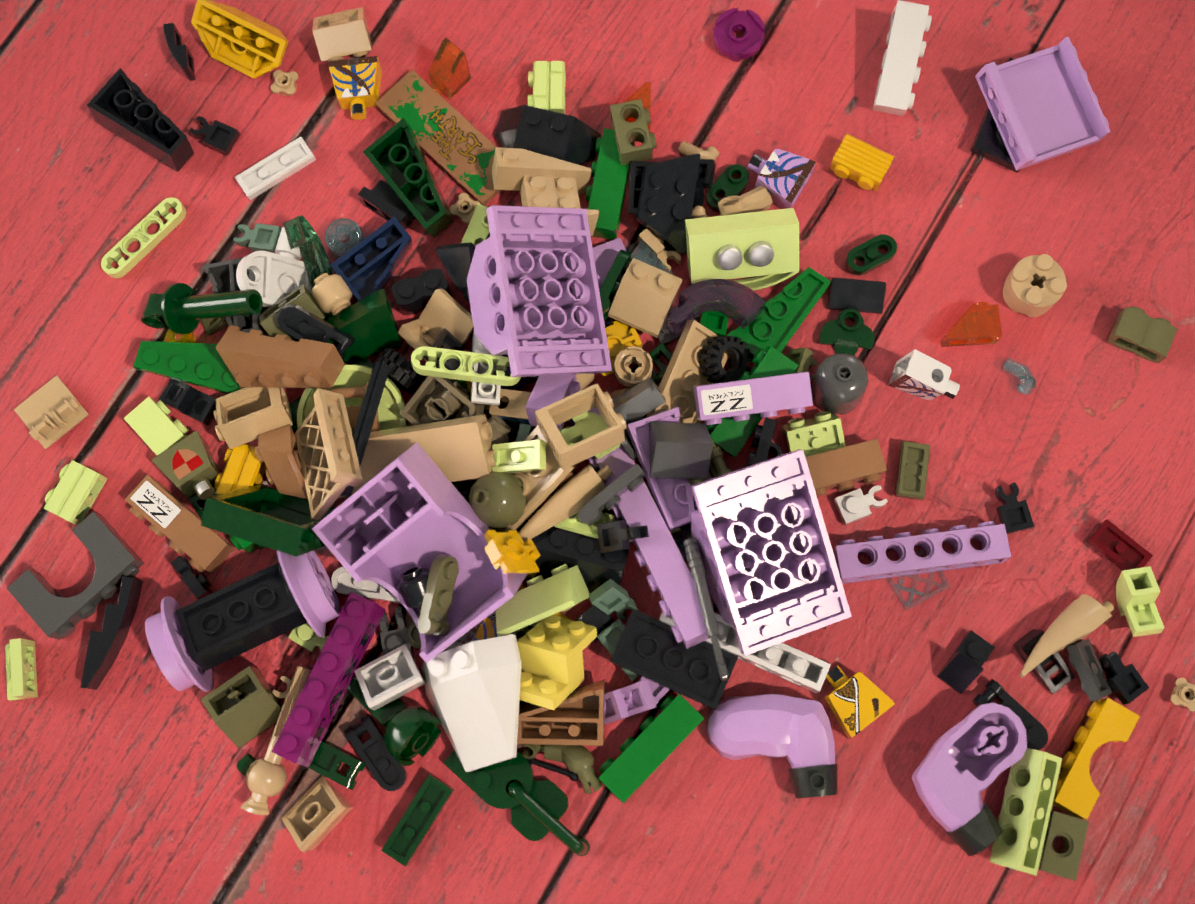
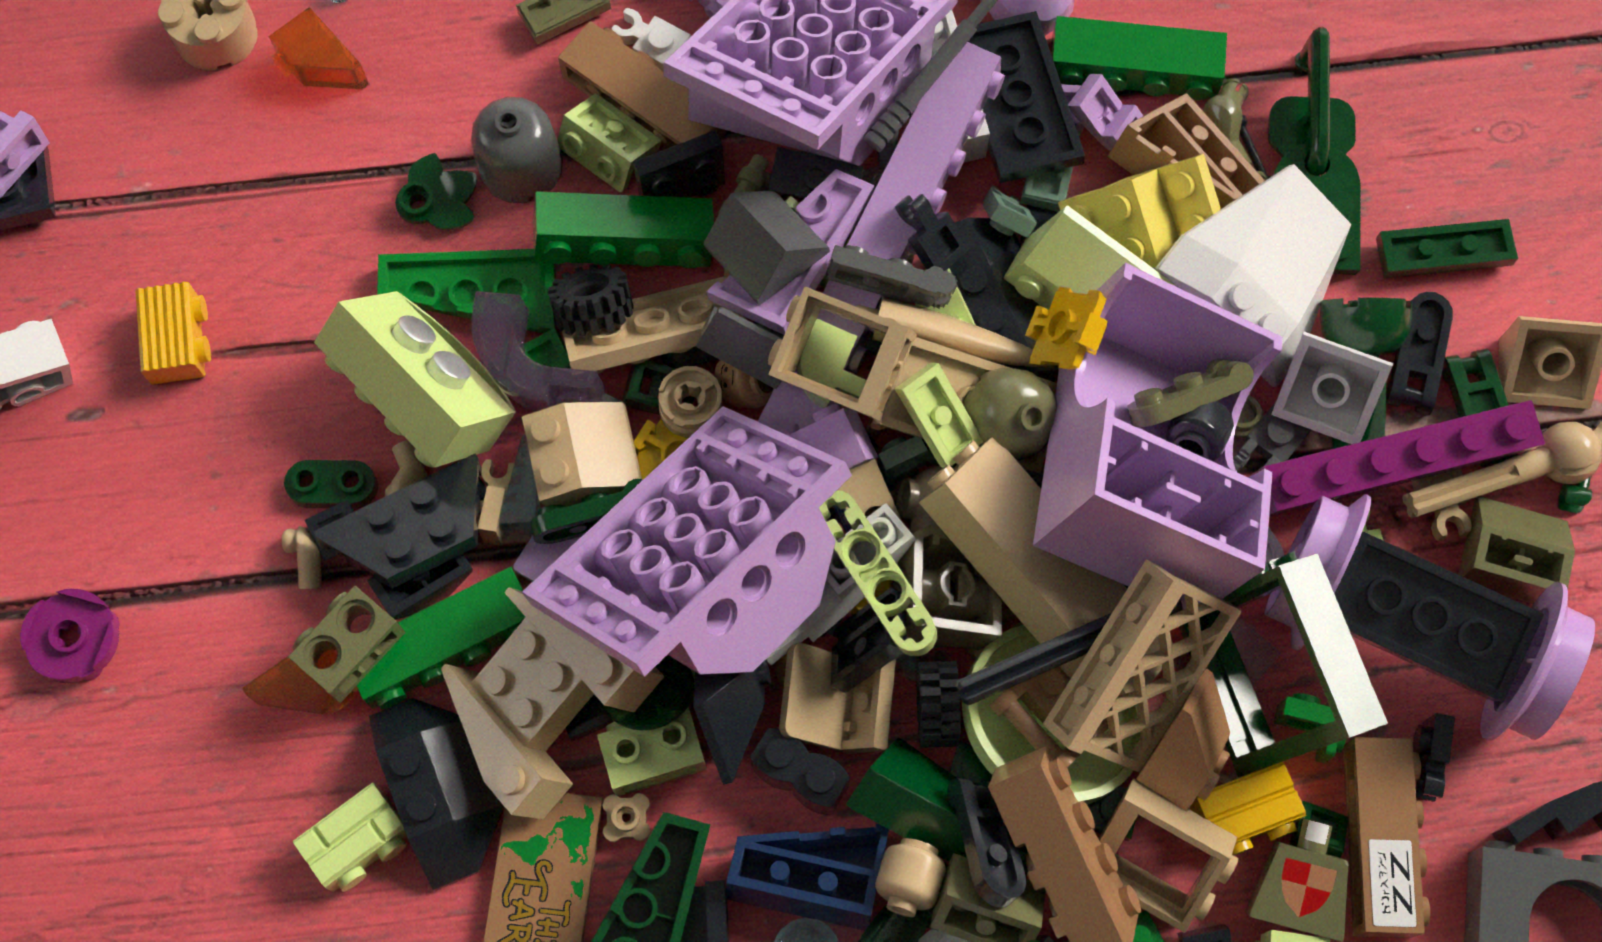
camera: 135 degrees left, 5 degrees down
(752, 201) = (355, 438): tan piece -> none
(753, 396) = (624, 209): lavender brick -> none
(782, 175) = (265, 418): torso -> none
(803, 358) = (518, 220): olive tile -> none
(857, 294) = (374, 216): black slope -> none
(869, 254) = (305, 236): dark green plate -> none
(923, 377) = (429, 49): white torso -> none

